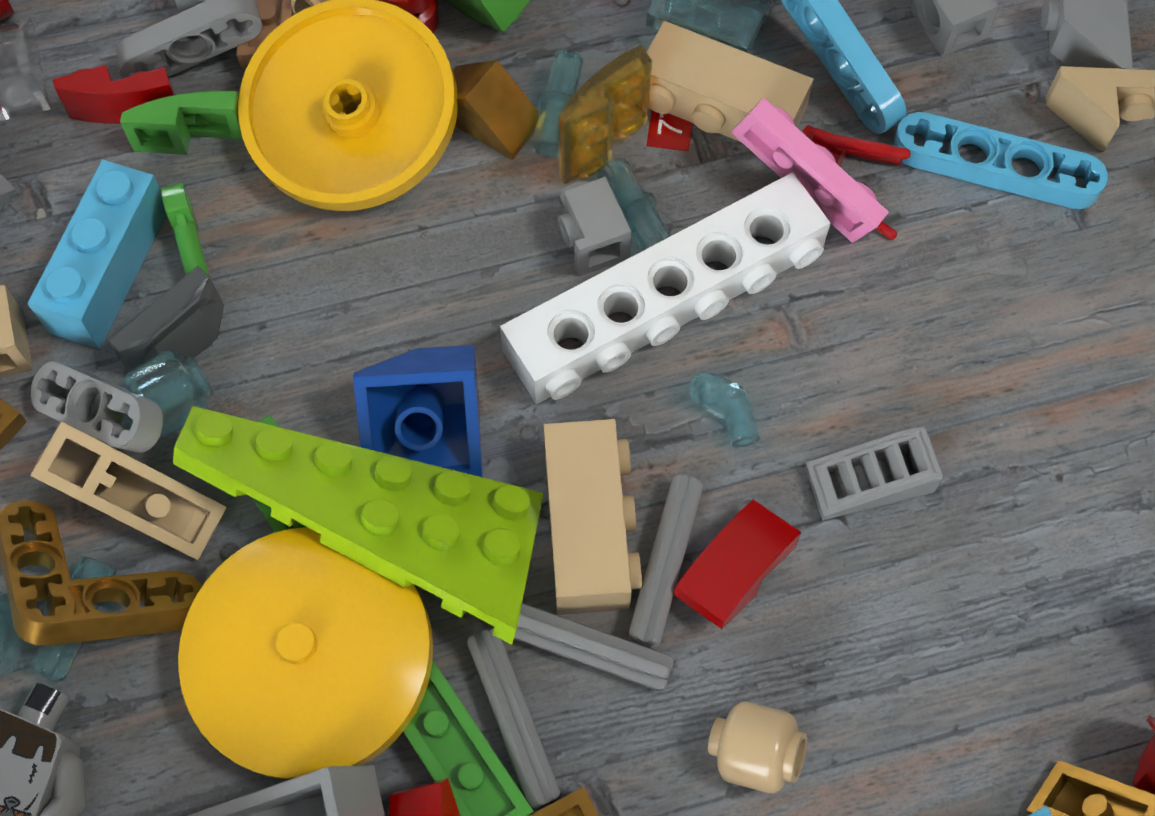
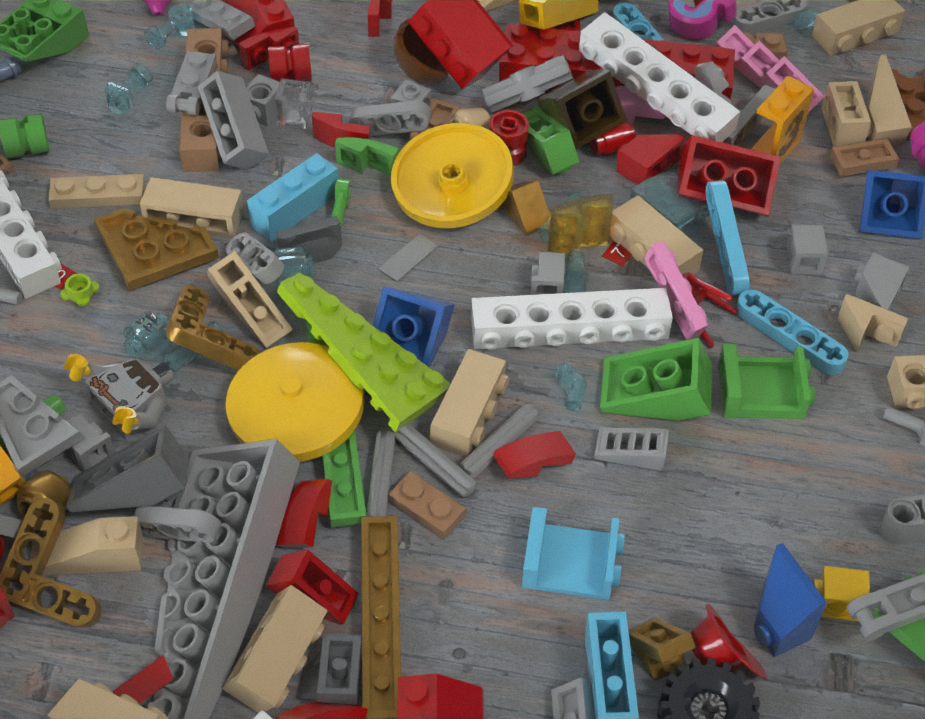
camera: 25 degrees right, 15 degrees down
(344, 280) = (408, 257): none -> light grey sticker
(612, 733) = (427, 505): none -> medium nougat plate
(758, 747) = (496, 538): tan head -> none
(856, 344) = (659, 382): none -> bright green slope
(888, 719) = (571, 558): none -> medium azure panel
(1011, 272) = (765, 385): none -> bright green panel

